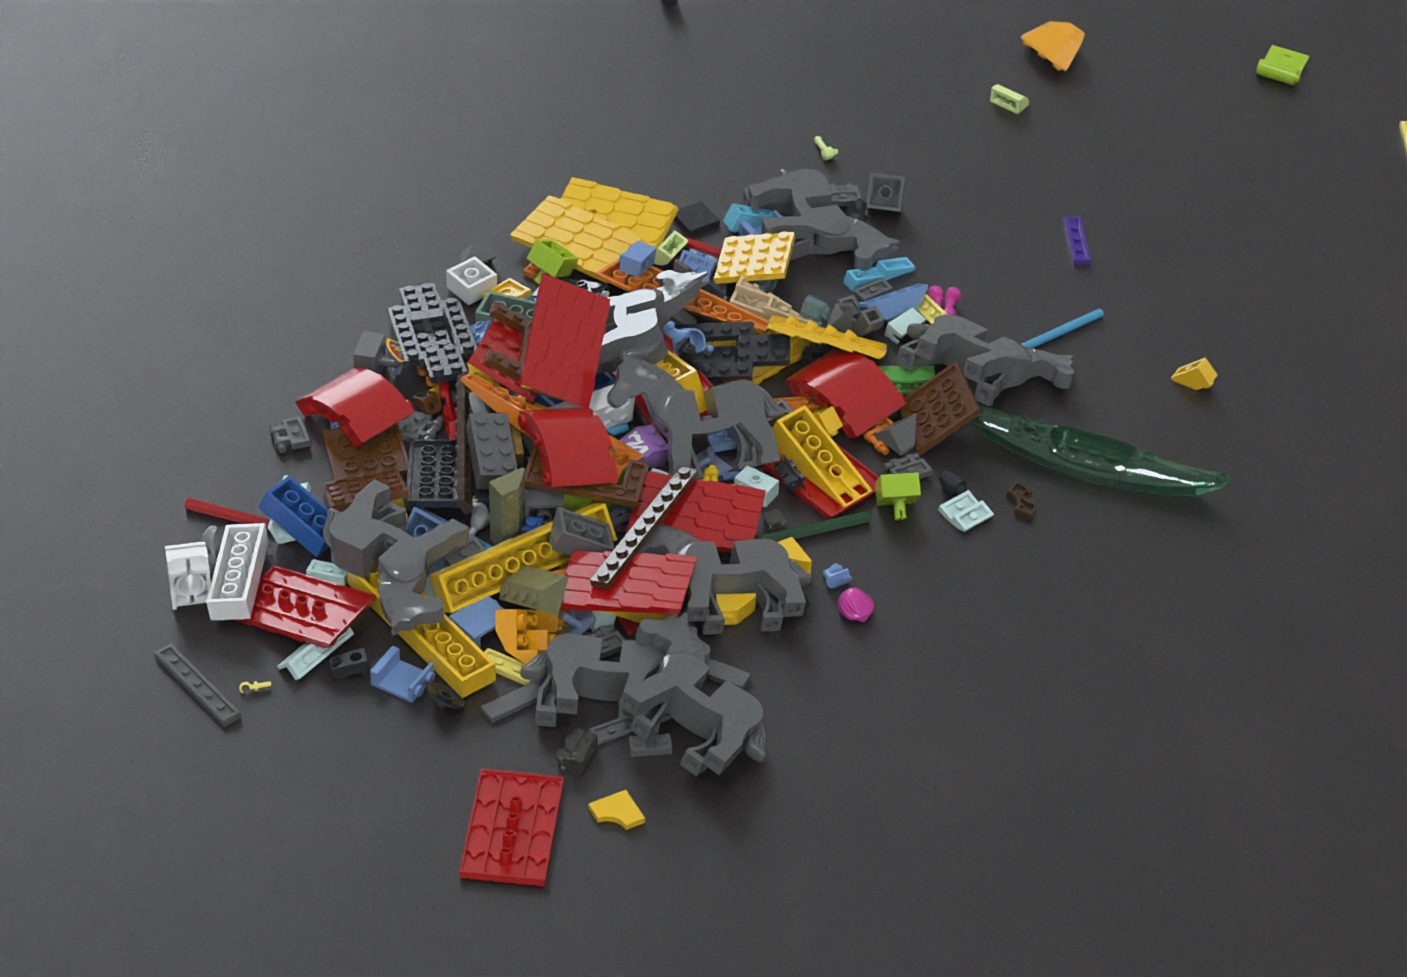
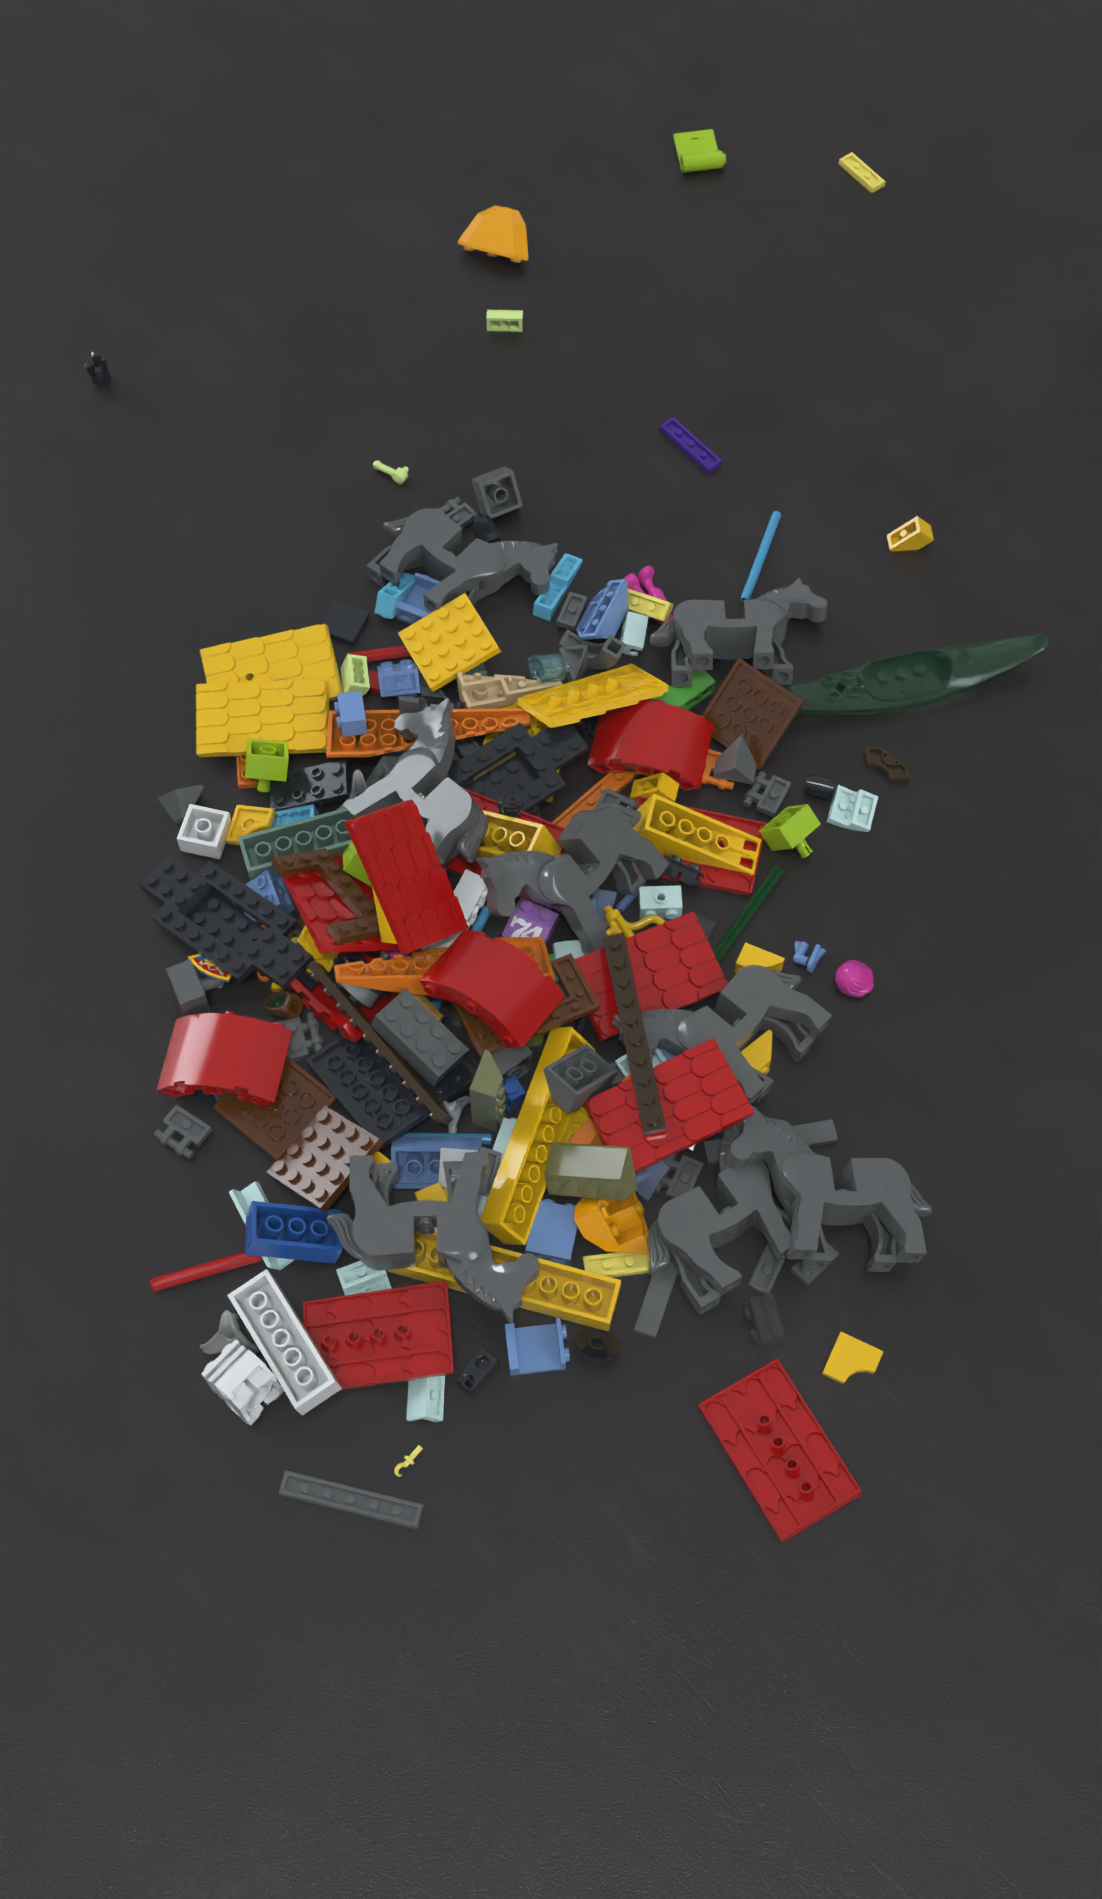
camera: 35 degrees left, 20 degrees up
(679, 335) = (489, 788): medium blue piece -> none

